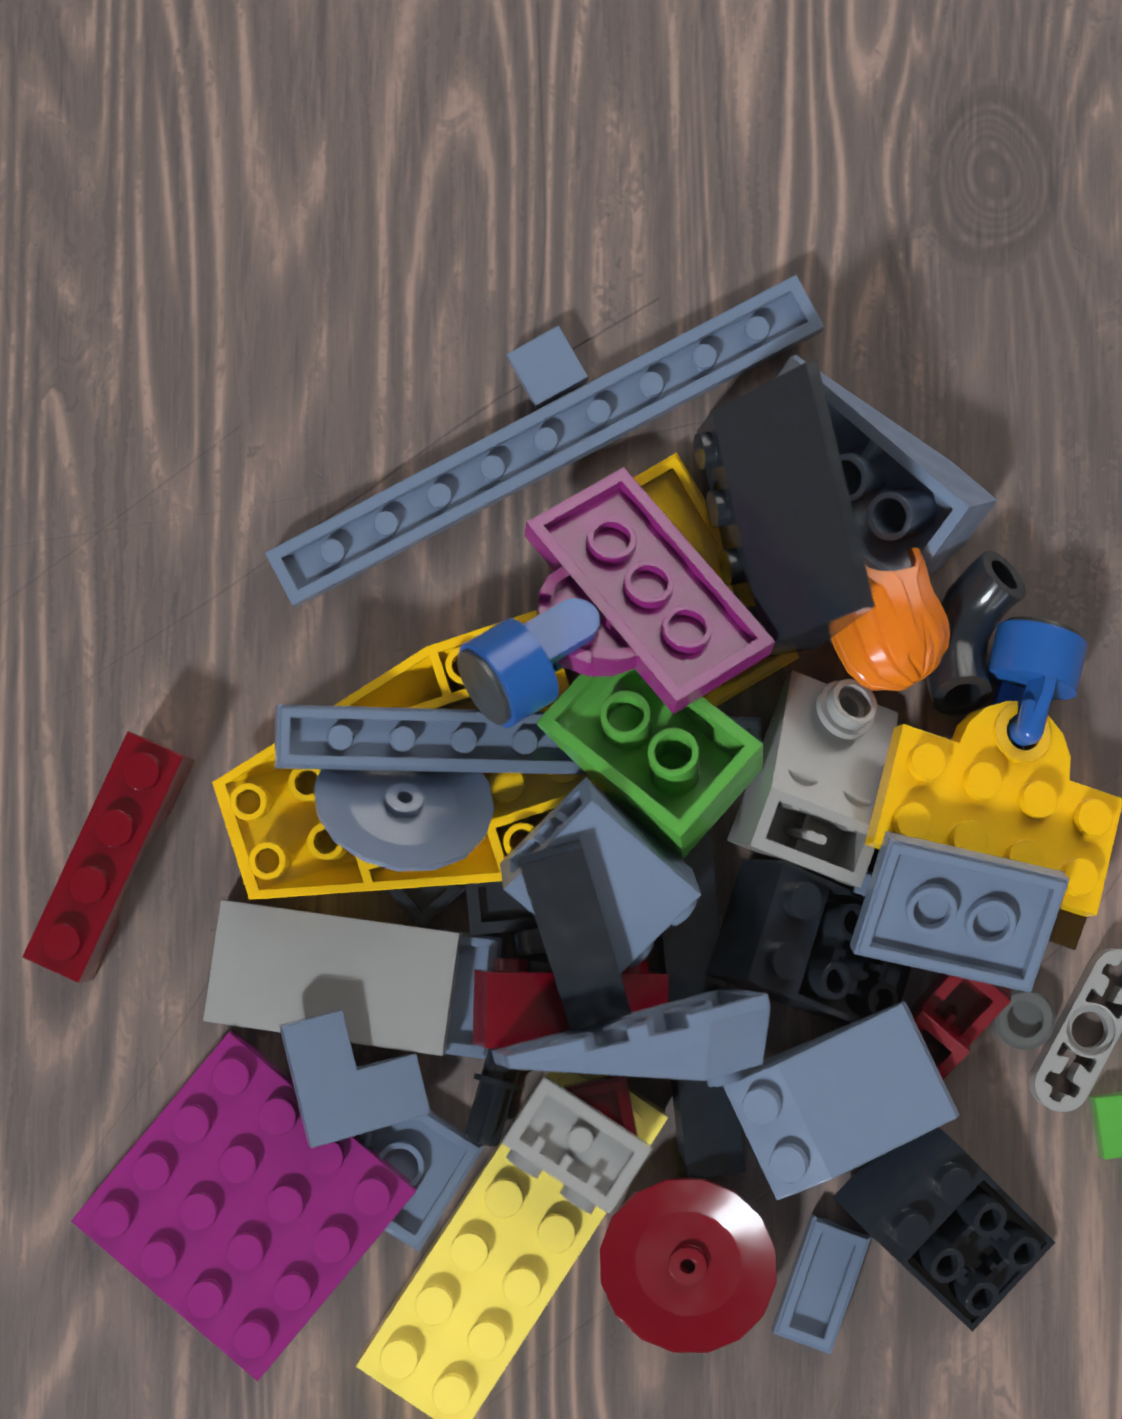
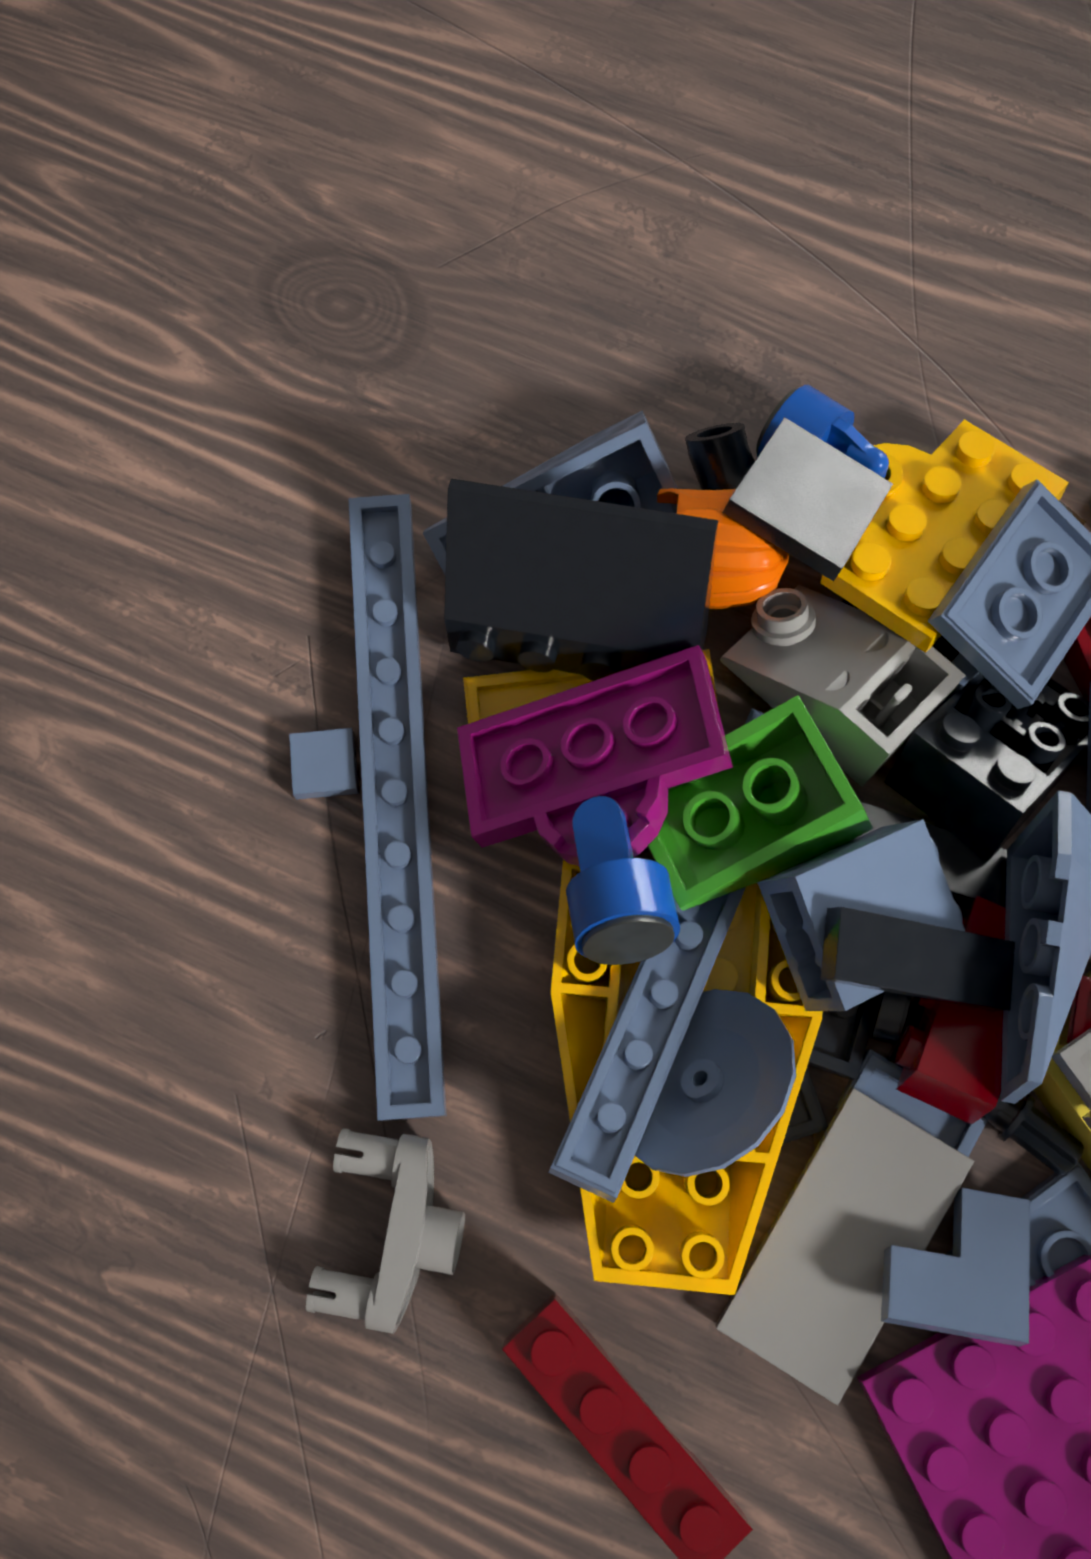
camera: 60 degrees left, 10 degrees down
(190, 624) = (415, 1237): none -> light grey connector
(958, 681) = (808, 499): none -> tile

